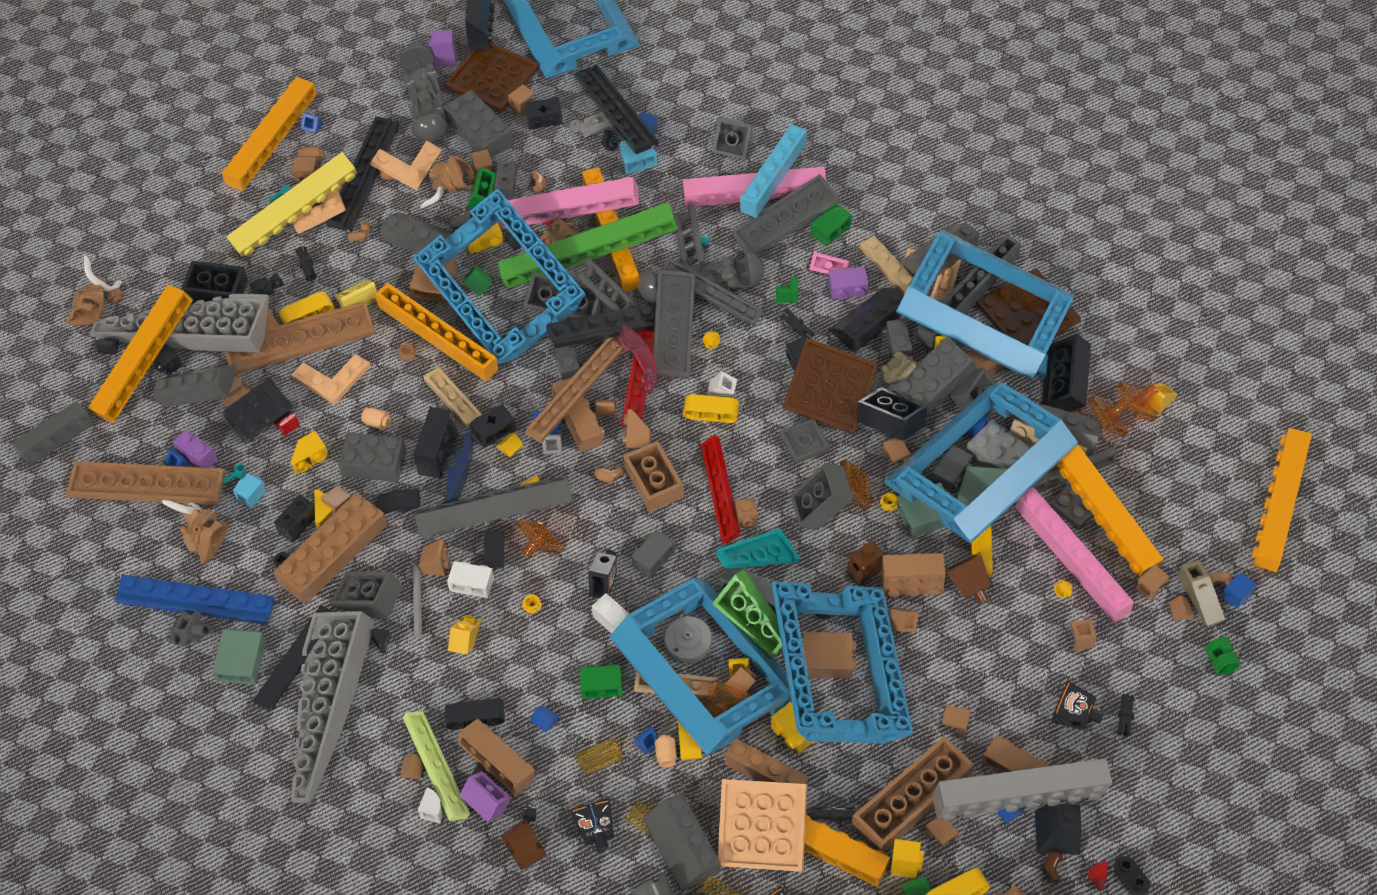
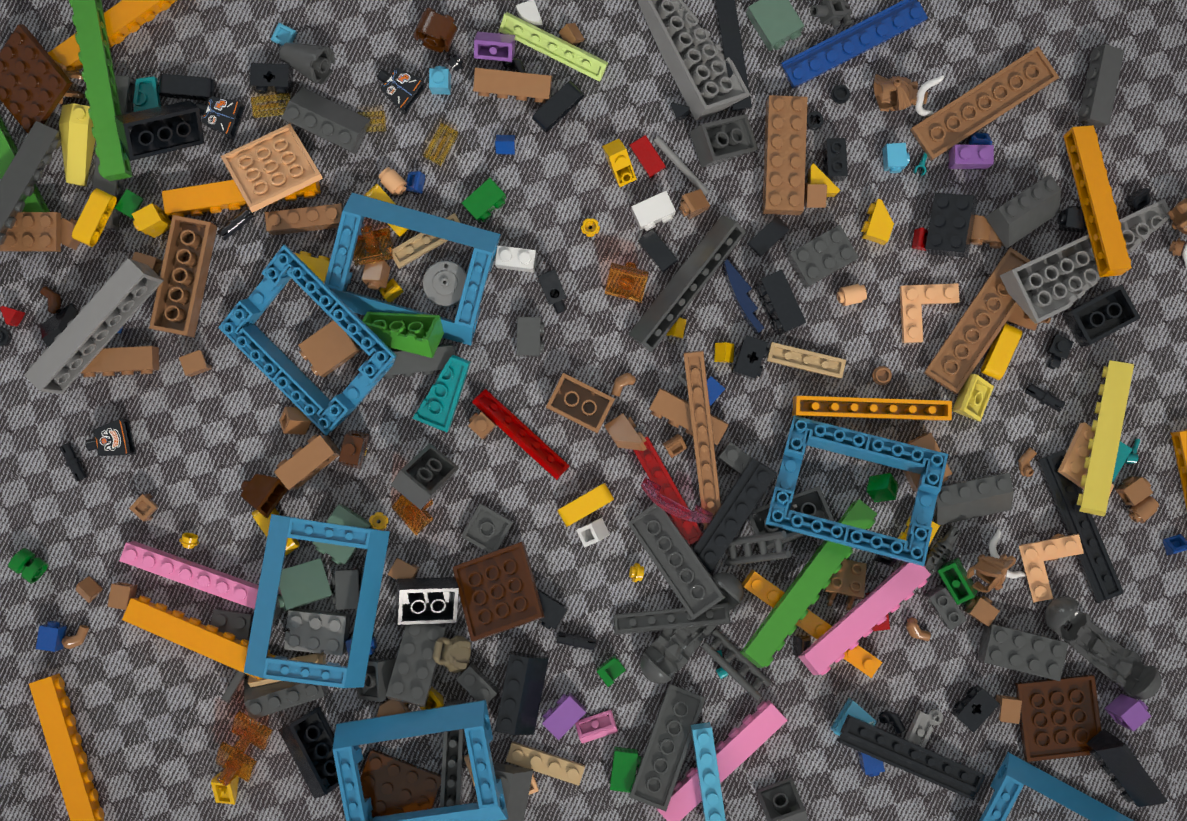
camera: 140 degrees right, 30 degrees up
(244, 566) = (840, 94): none -> black plate
(437, 626) = (647, 156): none -> red tile
(556, 804) = (440, 80): none -> medium azure brick
(1201, 592) = (78, 613): dark tan slope -> none

